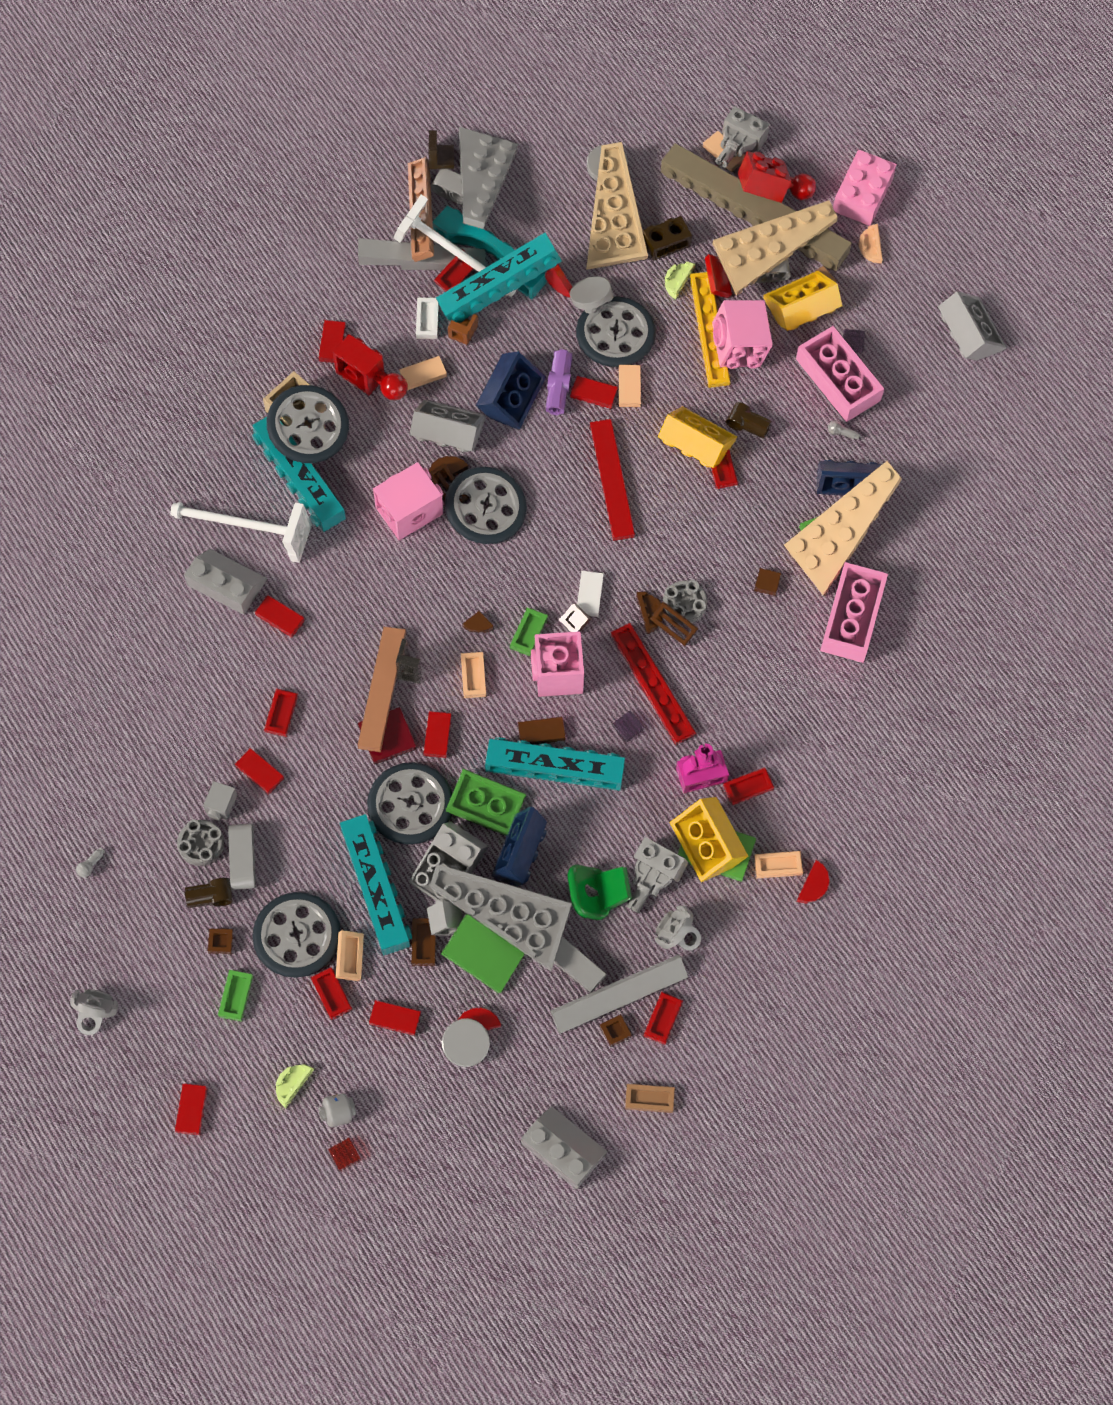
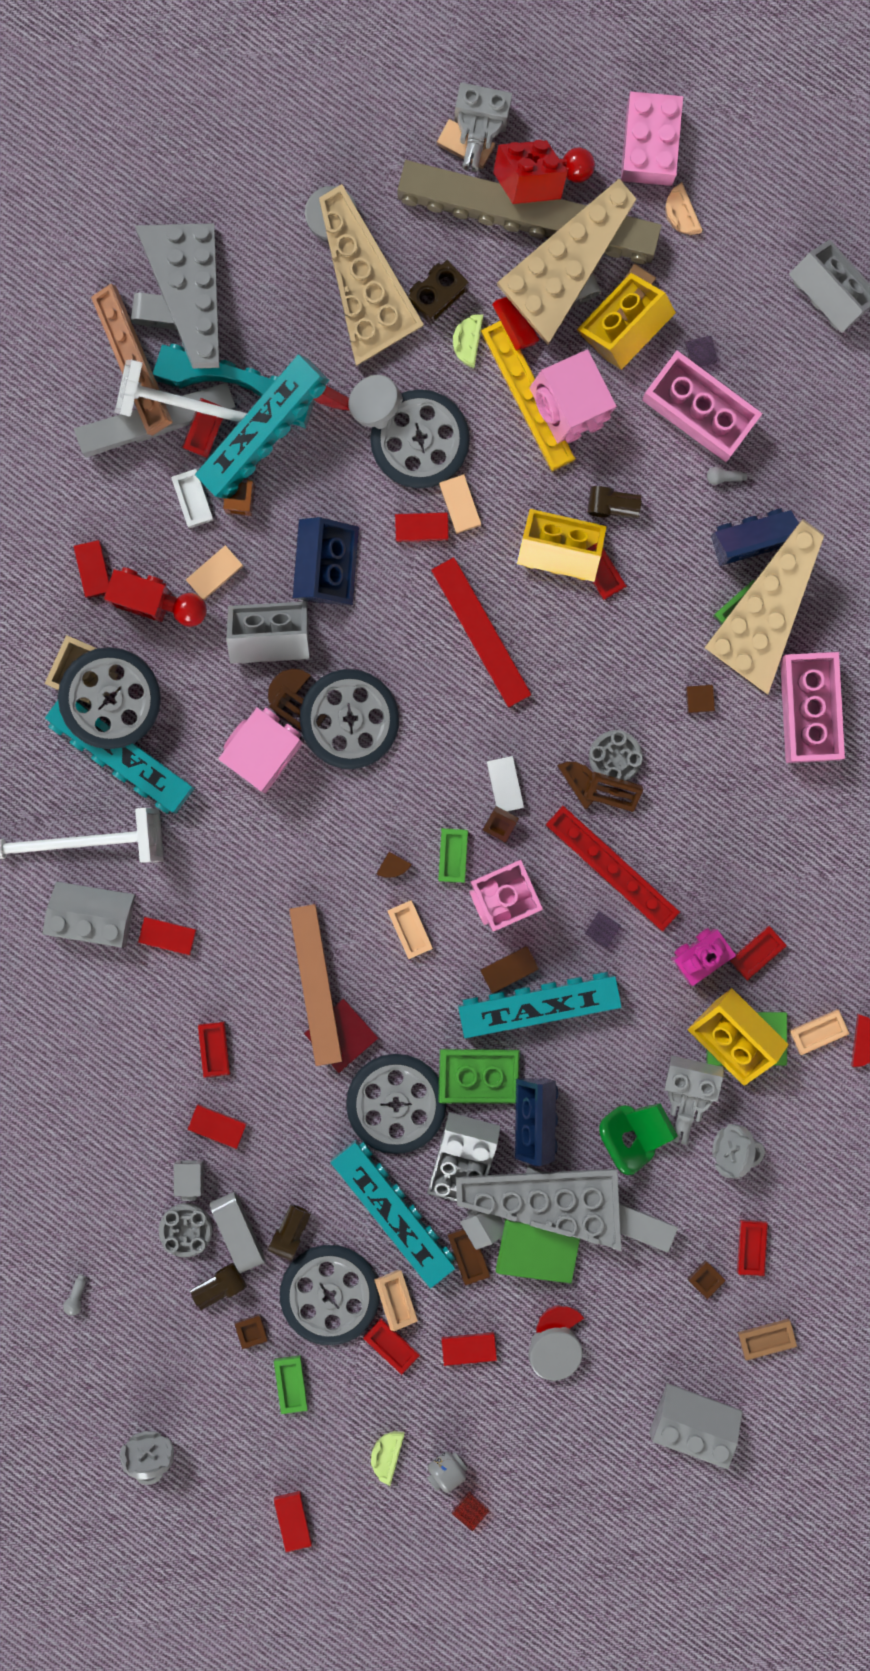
camera: 25 degrees left, 20 degrees up
(279, 876) = (288, 1235): none -> dark brown piece
(407, 667) = (334, 956): clear smoke panel -> none
(437, 734) = (396, 1014): red tile -> none
(439, 155) = (126, 273): dark brown panel -> none
(559, 382) = (377, 530): medium lavender piece -> none
(619, 994) = (697, 1241): light grey tile -> none

